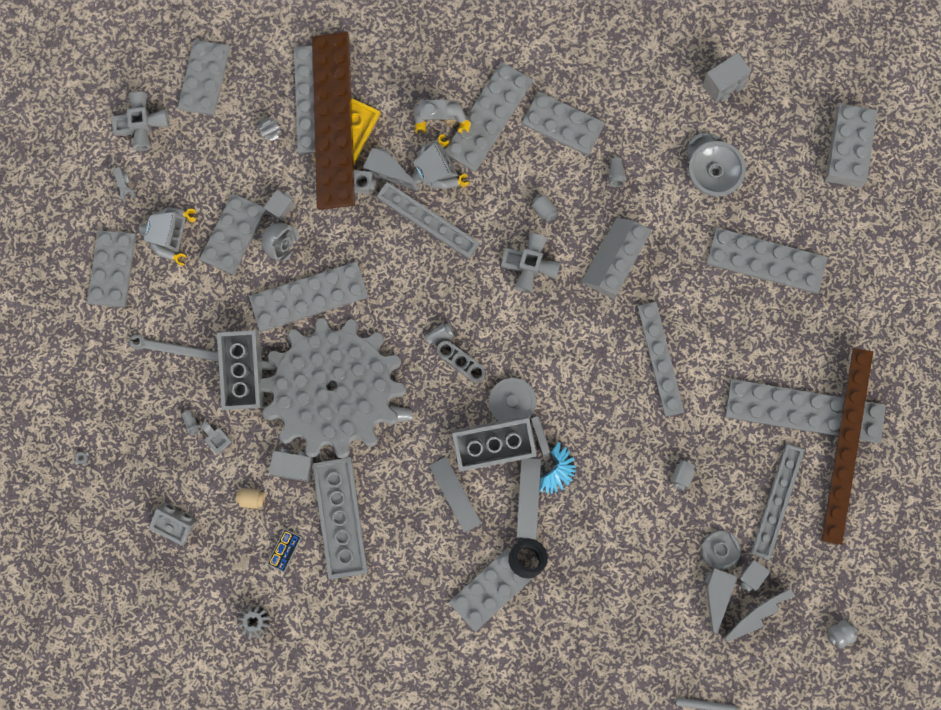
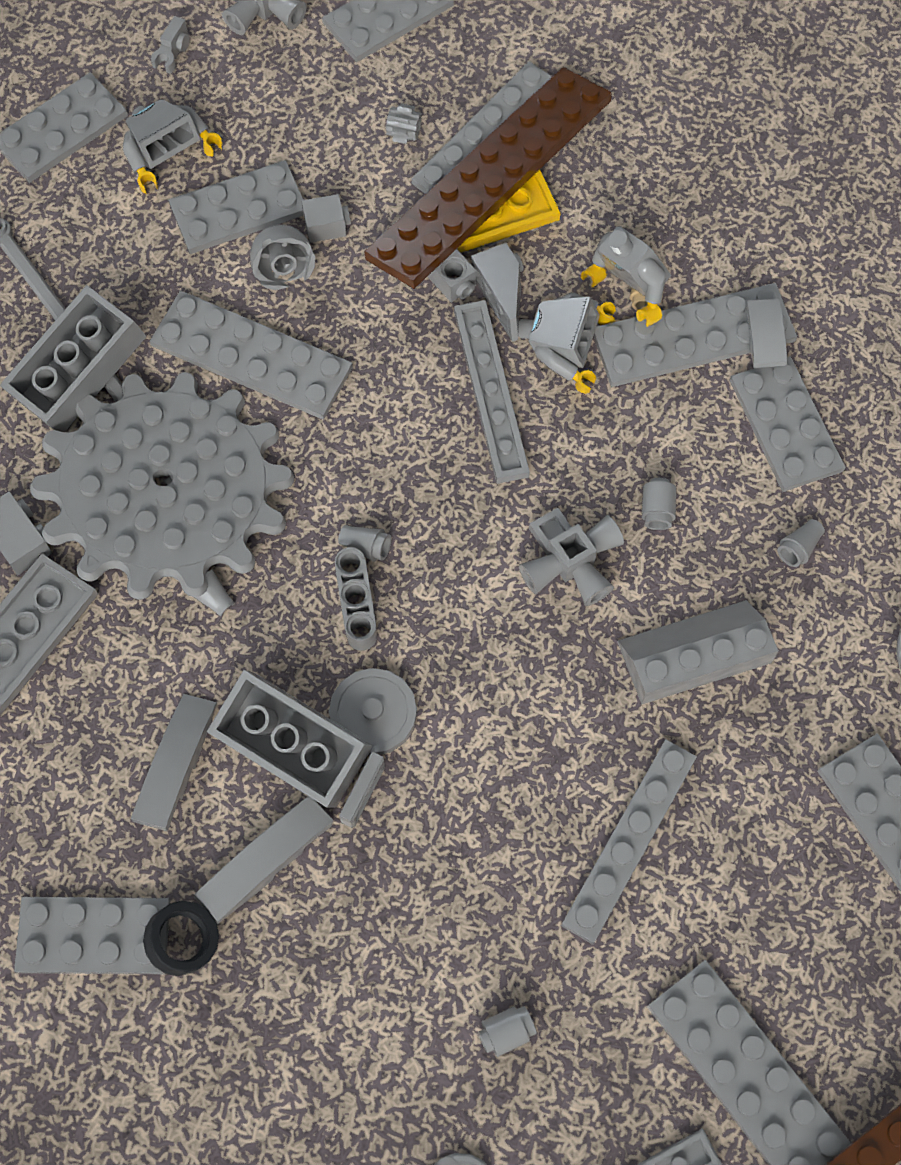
camera: 35 degrees right, 10 degrees down
(521, 90) = (766, 333): none -> light grey slope
(559, 472) = (341, 863): medium azure hair -> none

